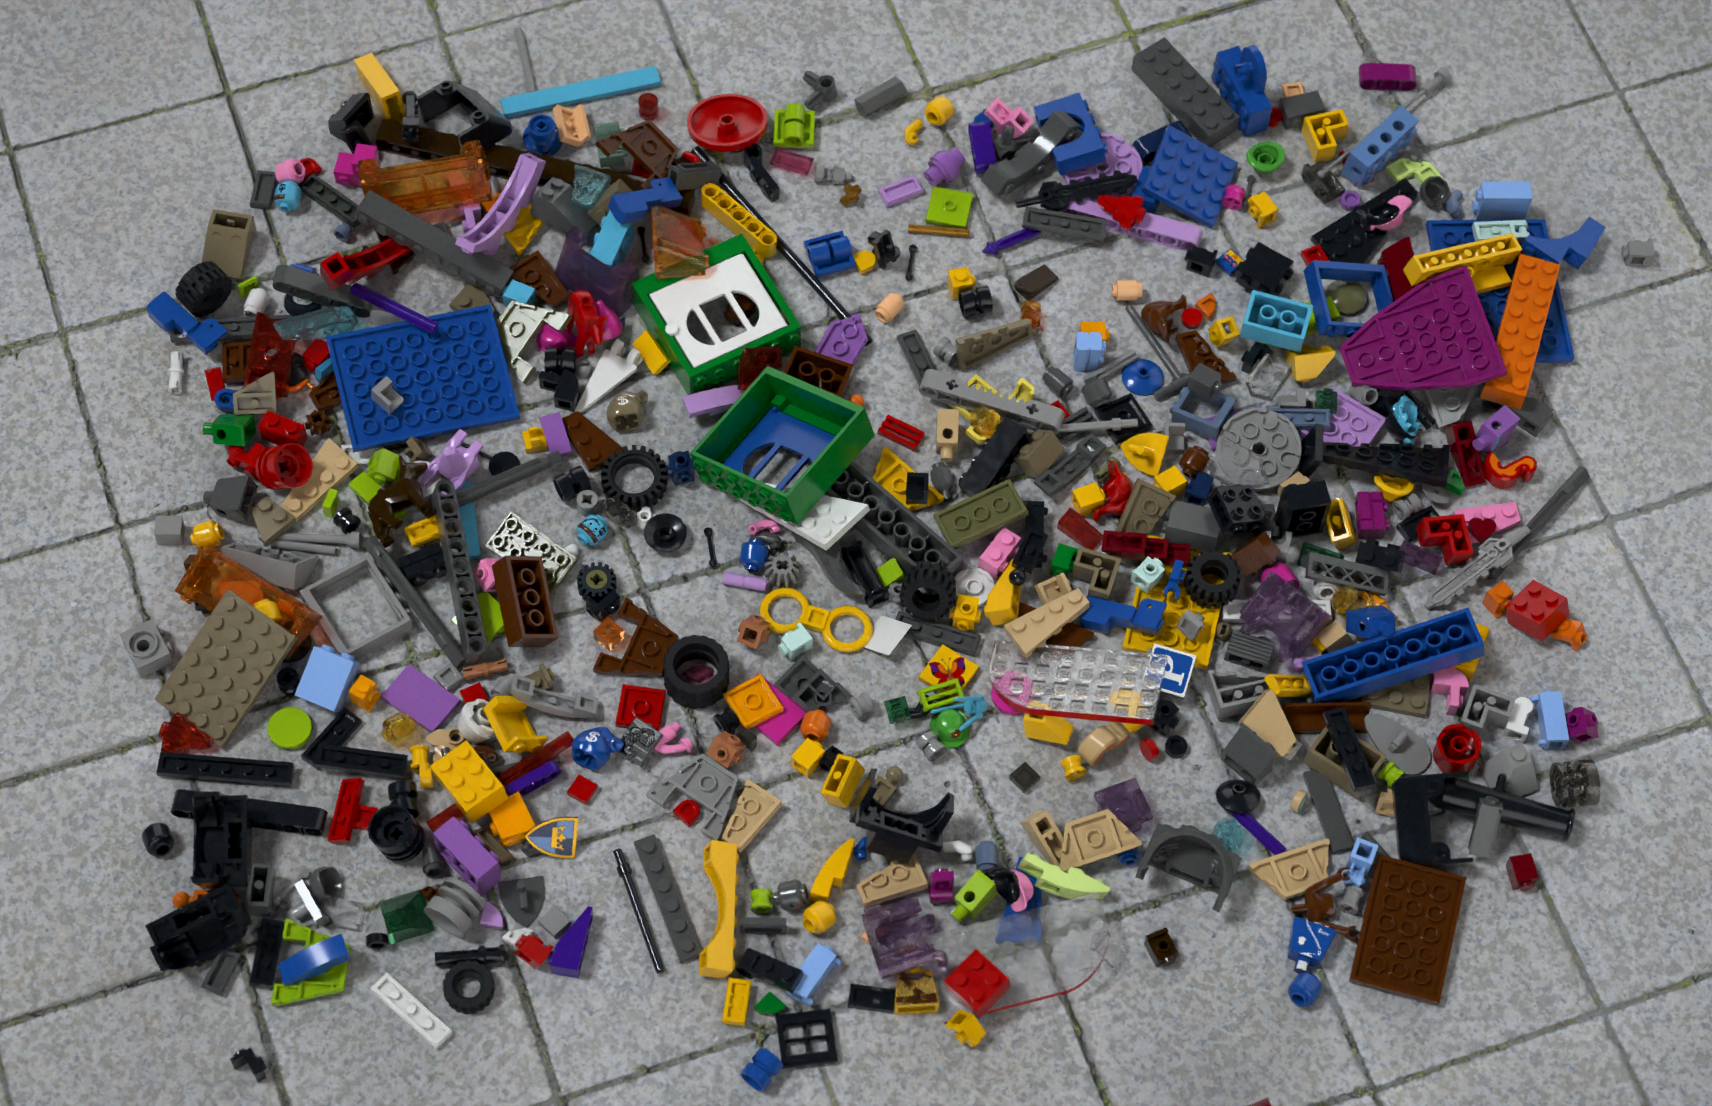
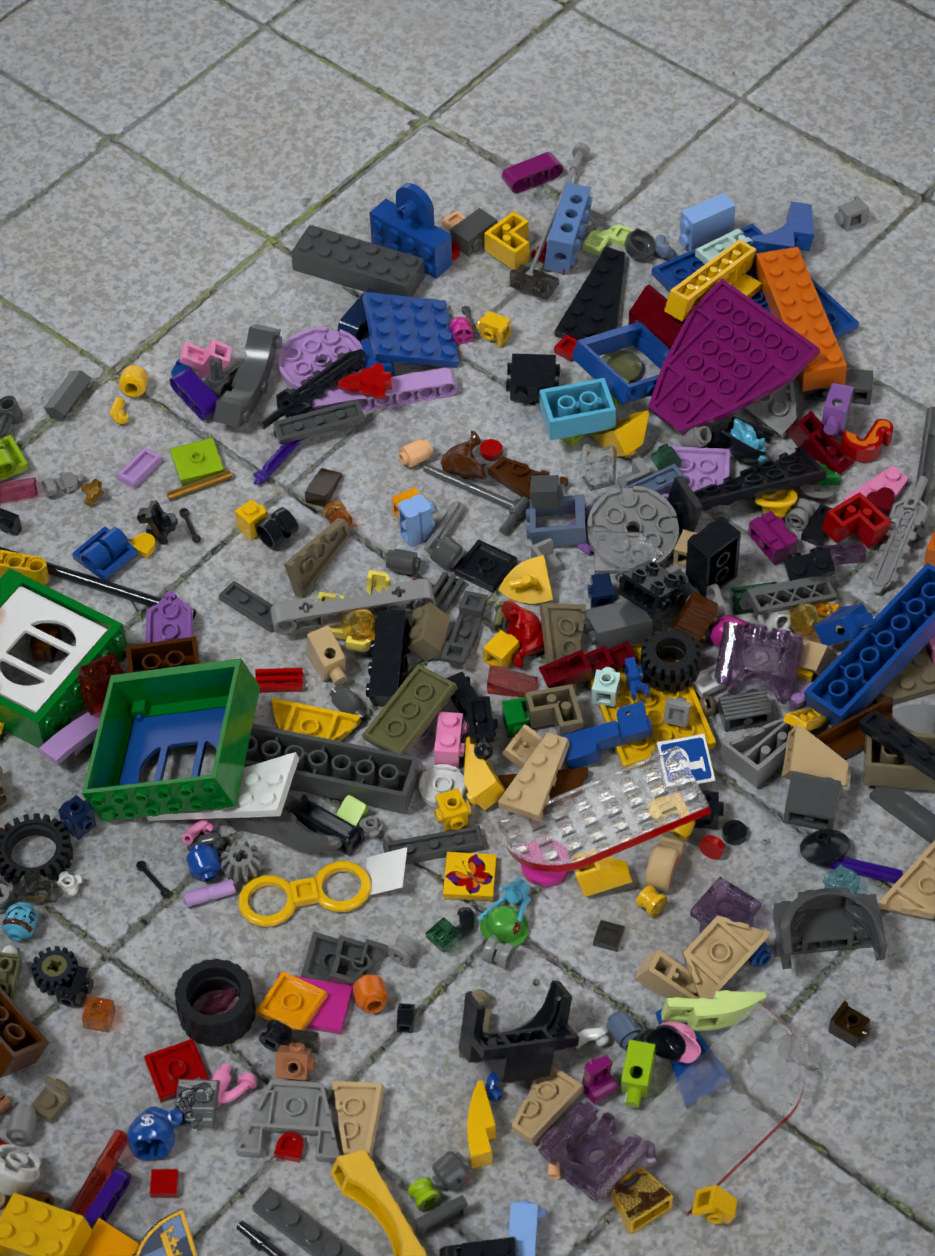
camera: 25 degrees left, 10 degrees down
(512, 725) = (50, 1156): yellow panel -> none
(553, 703) = (83, 1111): light grey slope -> none
(646, 648) = (148, 1005): reddish brown wing -> none
(661, 525) = (98, 878): black dish -> none
(754, 631) = (247, 942): nougat brick -> none
(795, 642) = (299, 923): light aqua brick -> none
(807, 757) = (381, 1027): yellow brick -> none
(819, 917) = (494, 1178): yellow head -> none
(842, 781) = (432, 1031): yellow brick -> none
(871, 998) = (597, 1230): black tile -> none
(889, 307) = (195, 573): light nougat brick -> none
(917, 488) = (331, 718): black panel -> none
(924, 700) = (466, 911): lime tile -> none
(928, 605) = (414, 820): black tyre -> none
(944, 166) = (170, 425): medium lavender piece -> none
(946, 350) = (277, 585): light grey wheel -> none
(977, 984) = (699, 1153): red brick -> none
(1086, 149) = (293, 356): blue arch -> none
(1115, 424) = (483, 572): light grey bar -> none
(1142, 384) = (479, 522): blue dish -> none
(1171, 481) = (570, 594): yellow brick -> none
(1194, 461) = (579, 569): reddish brown head -> none
(1200, 260) = (467, 396): black brick -> none
(1206, 306) = (498, 432): orange tile -> none
(1218, 333) = (527, 449): yellow brick -> none
(1229, 261) = (494, 386): blue tile -> none
(1250, 357) = (574, 450): black bracket -> none
(1265, 157) = (469, 283): bright green hat -> none
(1298, 800) = (884, 820): tan tile -> none
(1340, 524) = (755, 559): yellow brick -> none
(1350, 200) = (568, 287): medium lavender tile -> none
(1386, 216) = (613, 280): hair -> none

